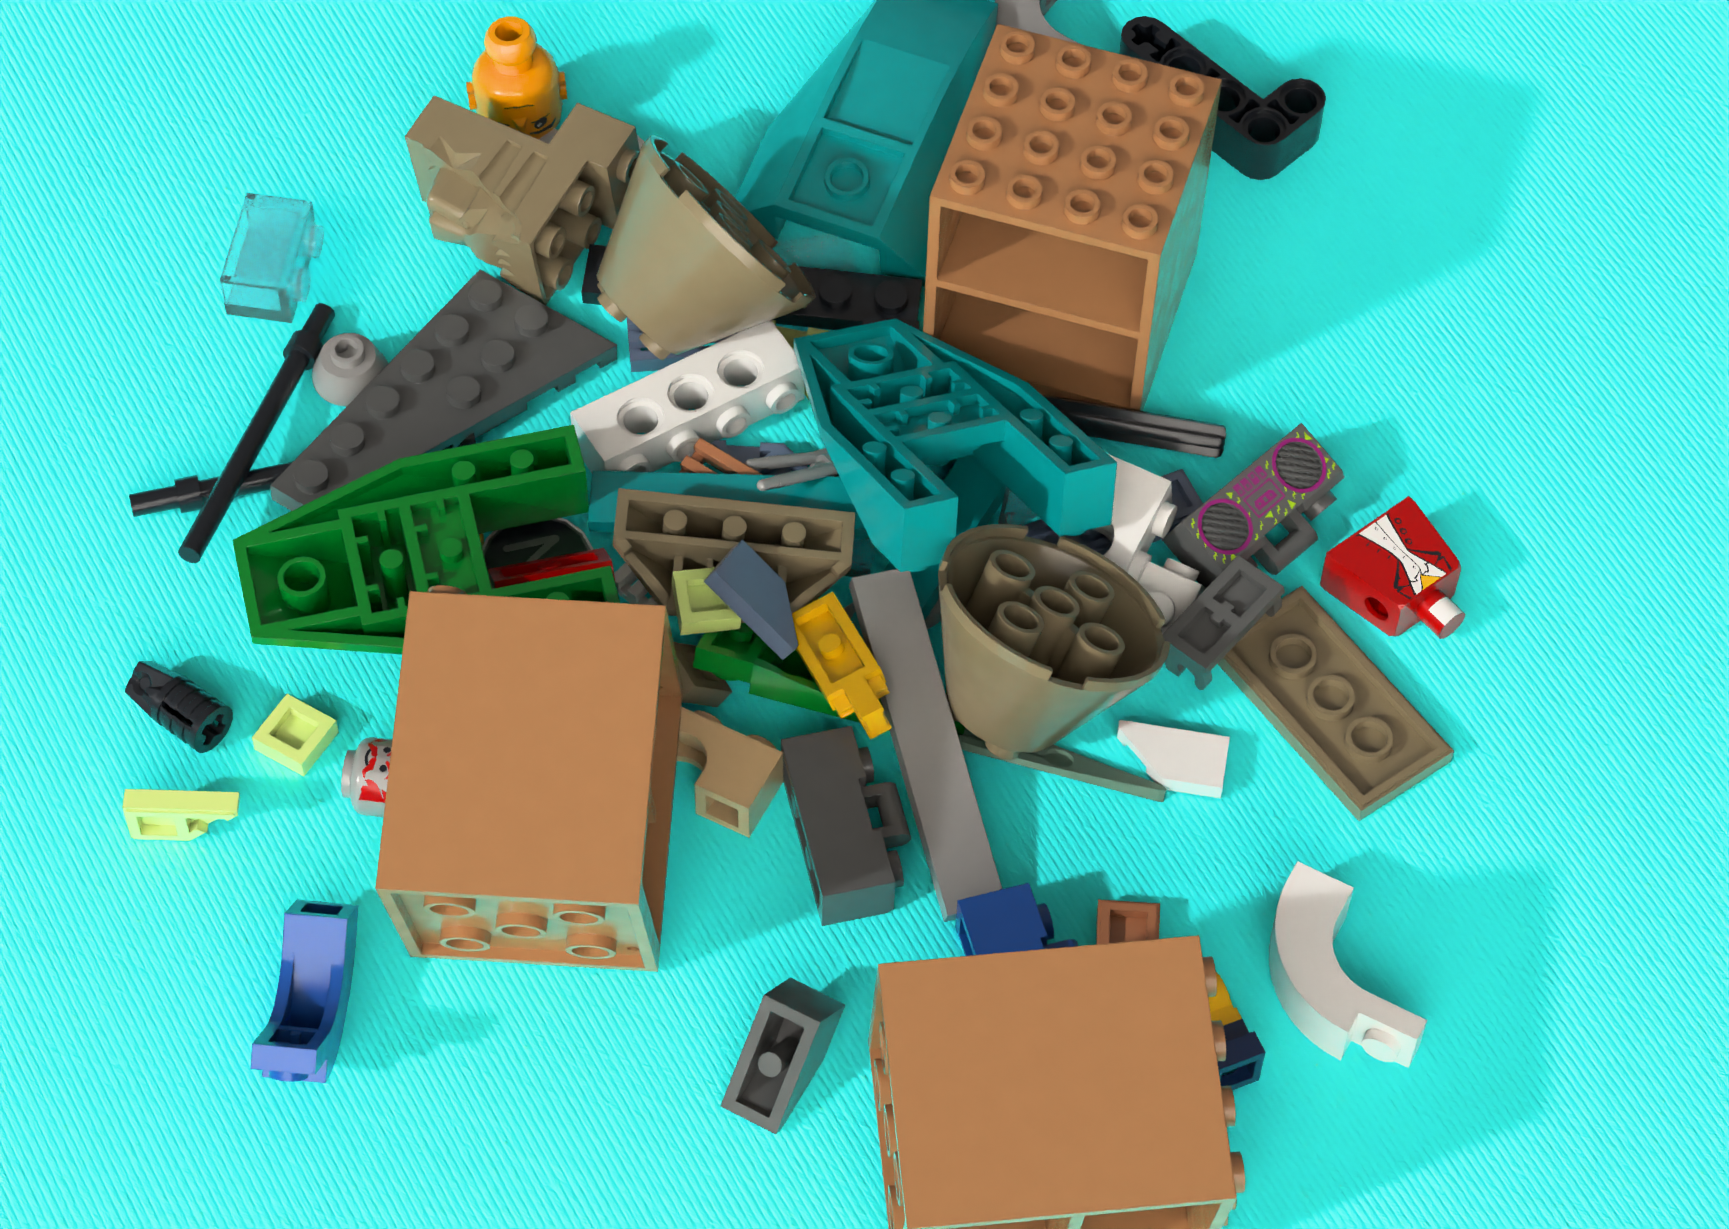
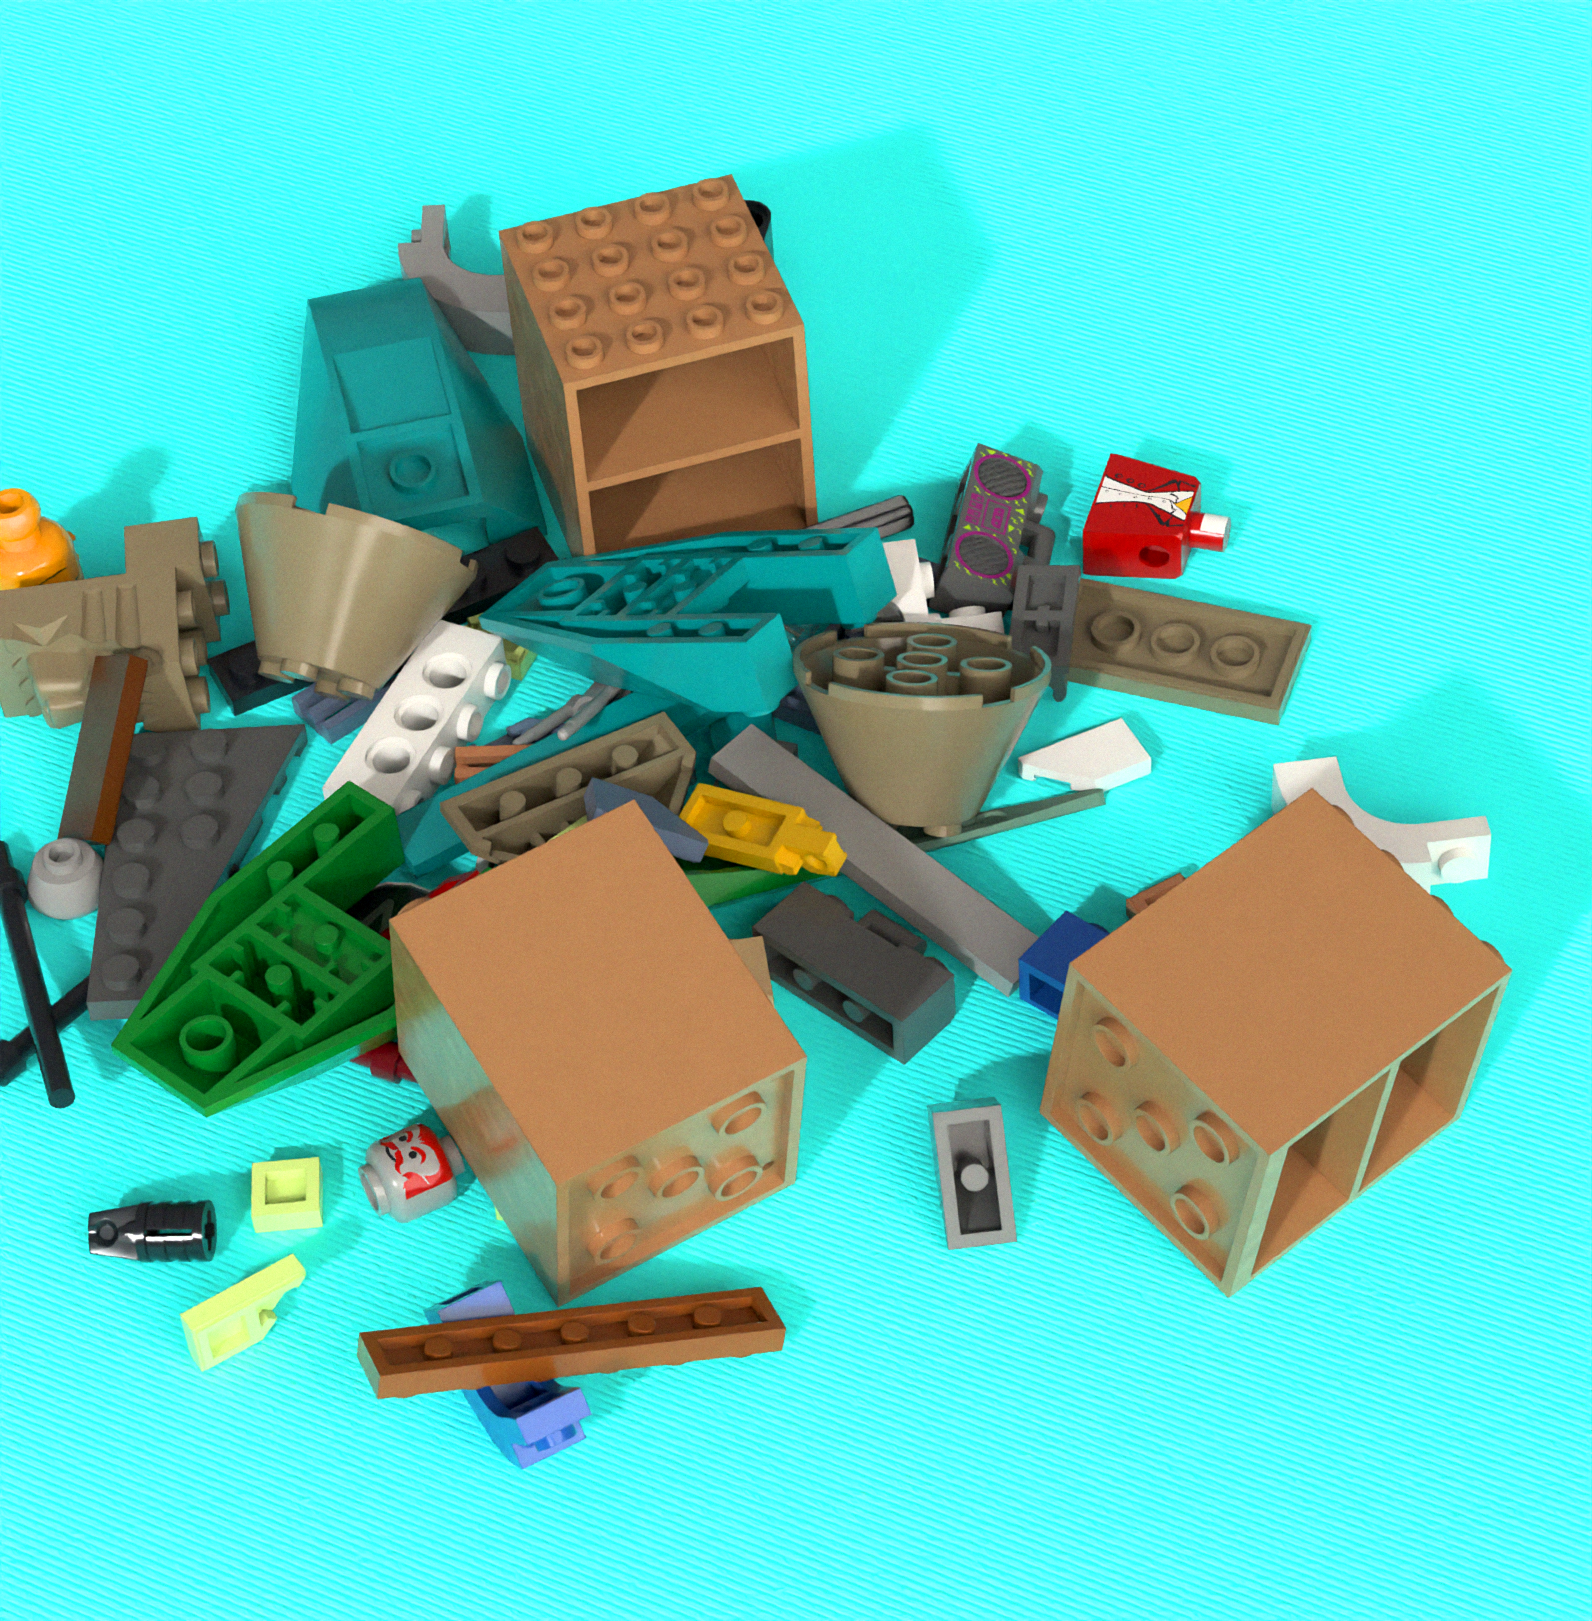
camera: 30 degrees left, 10 degrees down
(363, 1002) = (569, 1342): none -> dark orange plate
(434, 282) = (103, 749): none -> reddish brown tile

